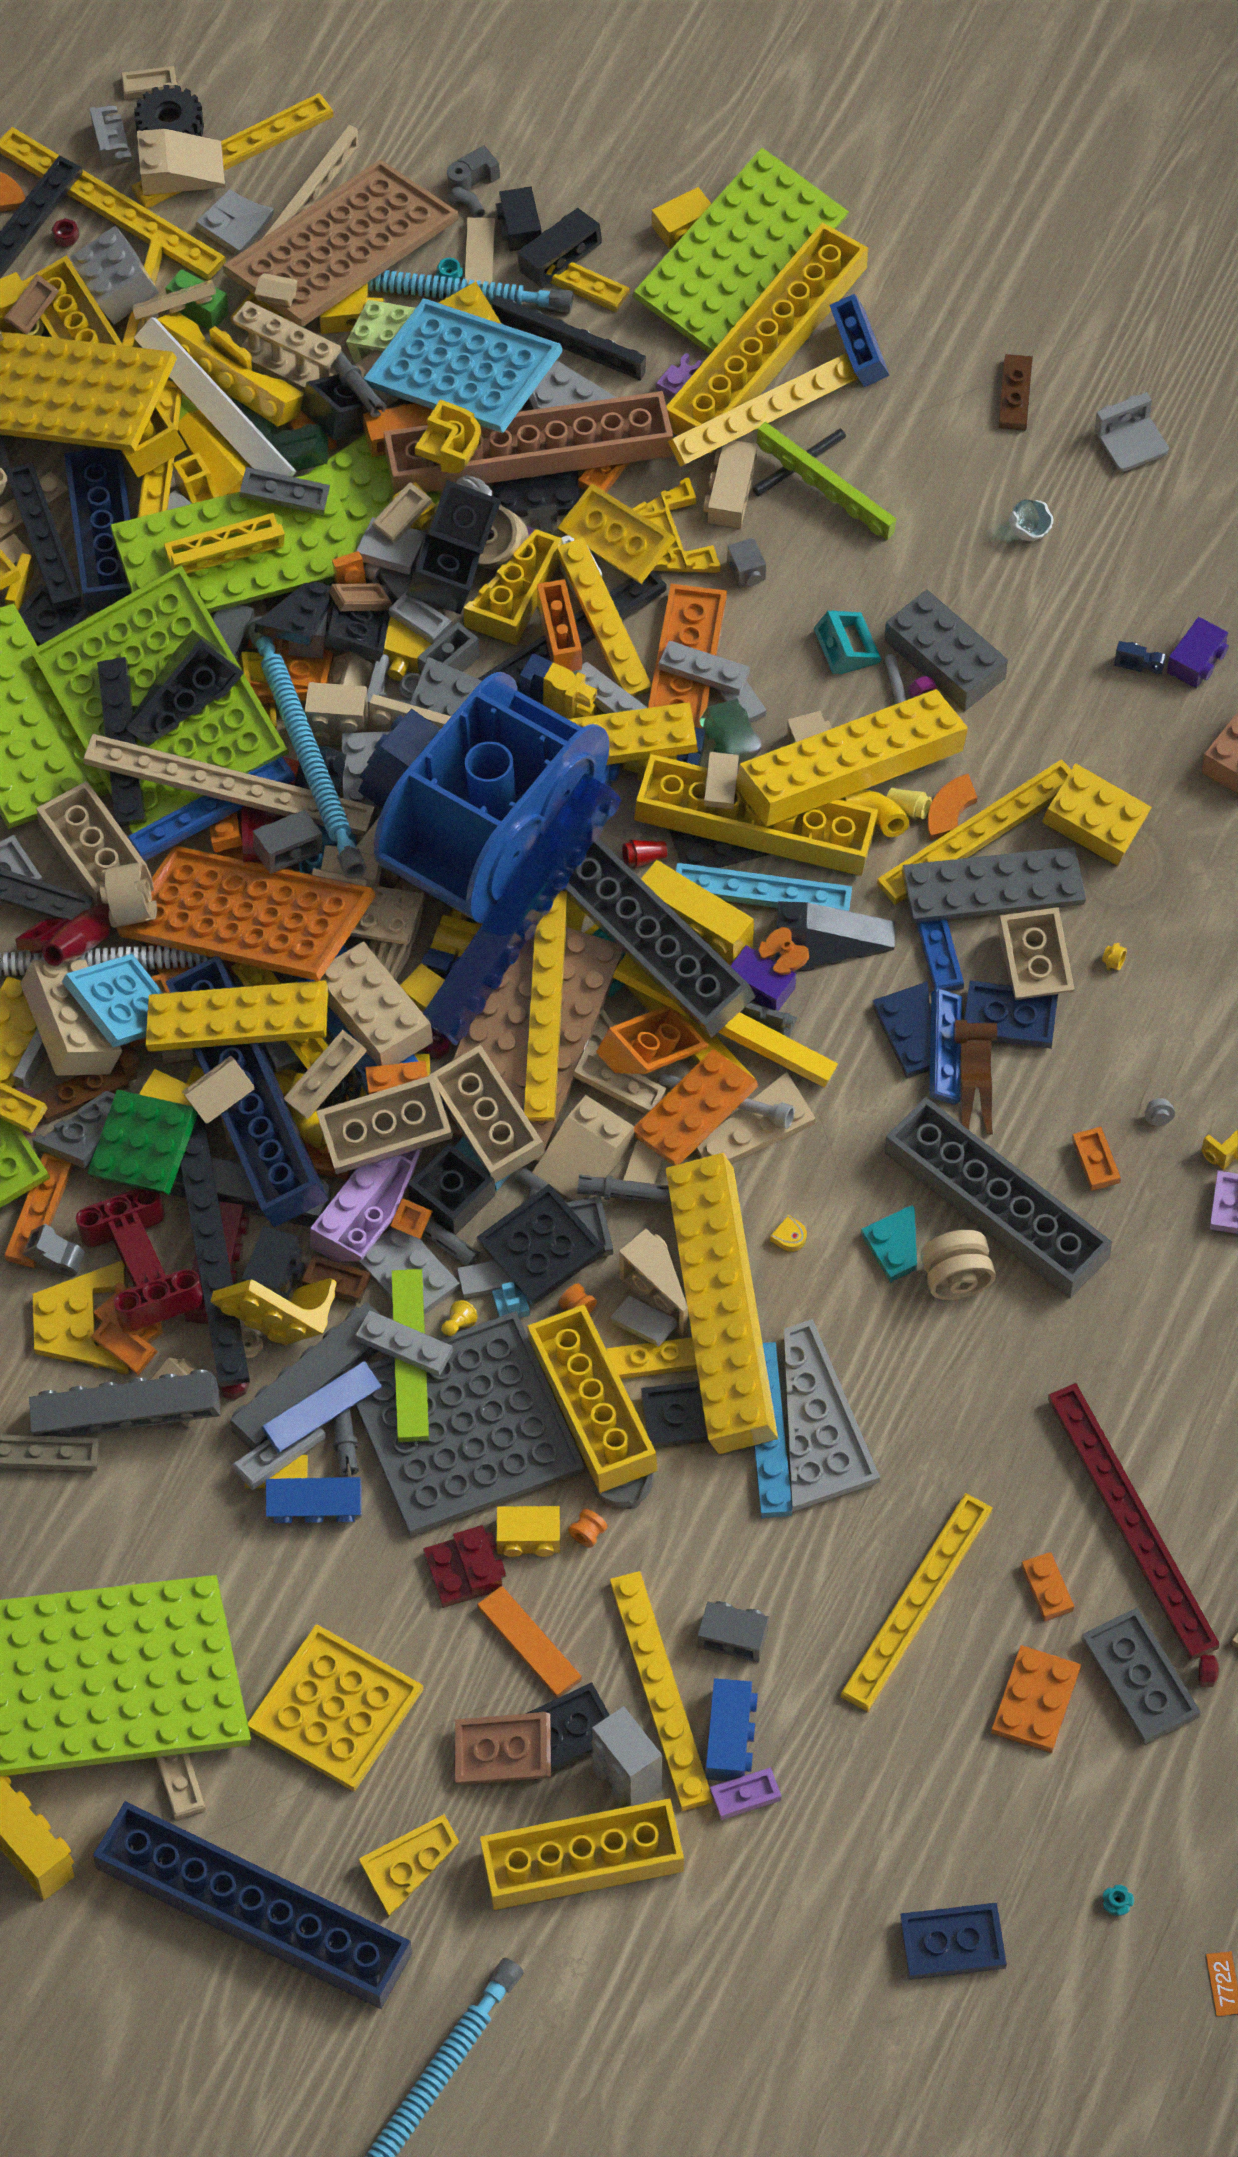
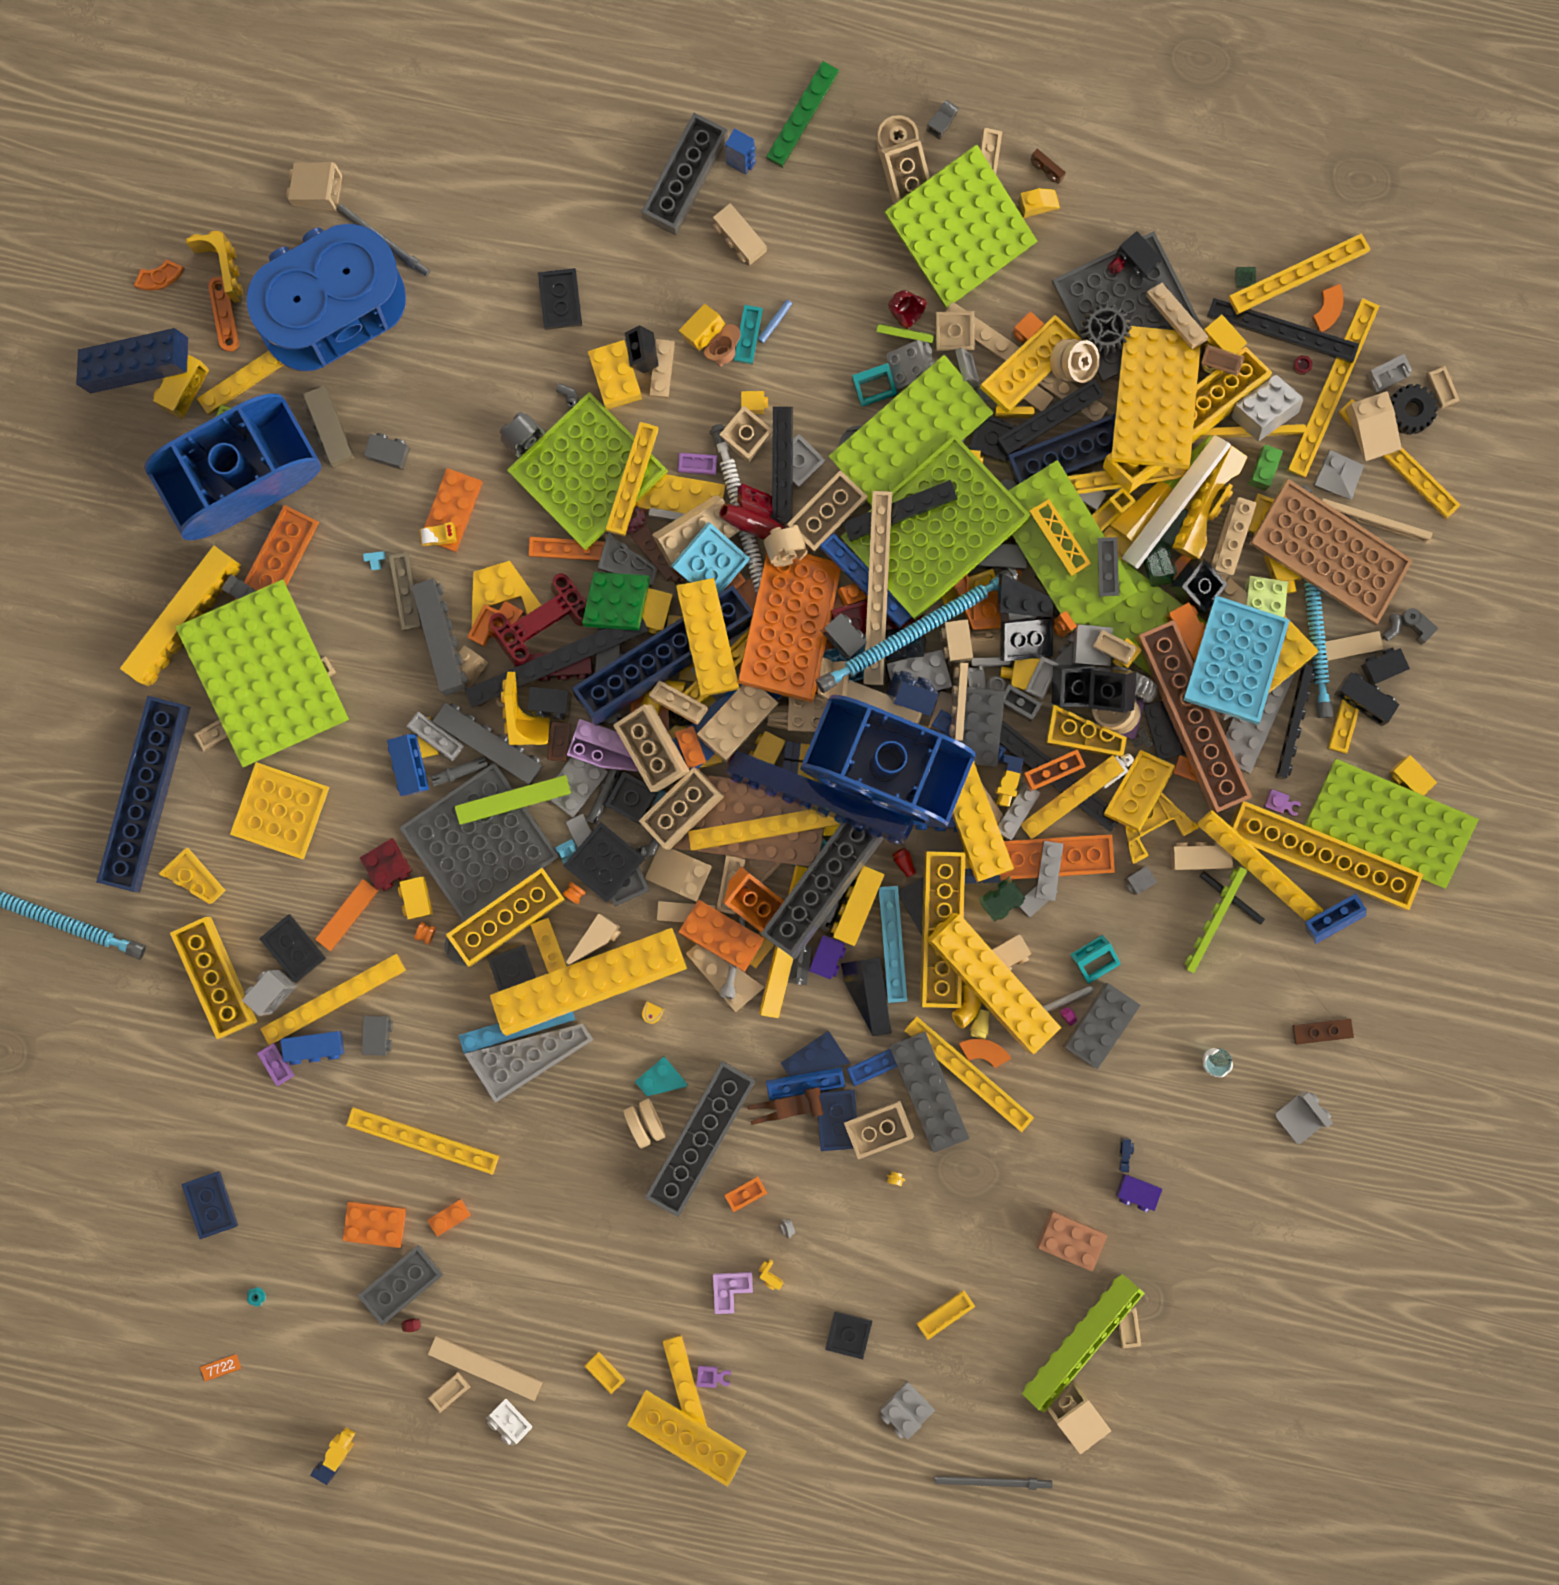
camera: 75 degrees right, 25 degrees up
(53, 1251) = (537, 565): dark grey leg -> none
(174, 301) = (1251, 453): tan plate -> none
(187, 683) = (946, 542): black wedge -> none
(218, 1089) = (652, 638): tan panel -> none
(276, 289) = (1270, 519): tan piece -> none
(321, 1407) = (464, 755): tile -> none
(351, 376) = (1216, 586): dark grey pin -> none
(360, 597) = (1049, 635): medium nougat tile -> none
(404, 1343) = (515, 795): light grey plate -> none
(411, 1218) = (603, 778): orange plate -> none
(449, 265) = (1332, 624): teal plate -> none
(450, 437) = (1172, 666): yellow brick -> none
(461, 1316) = (550, 823): yellow piece -> none
(502, 1748) = (269, 916): nougat plate -> none
(623, 1189) = (655, 903): dark grey pin -> none
(643, 1321) = (570, 936): light grey tile -> none
(721, 780) = (954, 903): tan tile -> none
(792, 955) = (849, 965): orange piece -> none
(1096, 814) = (993, 1149): yellow brick -> none
(1133, 1522) = (501, 1262): dark red plate -> none

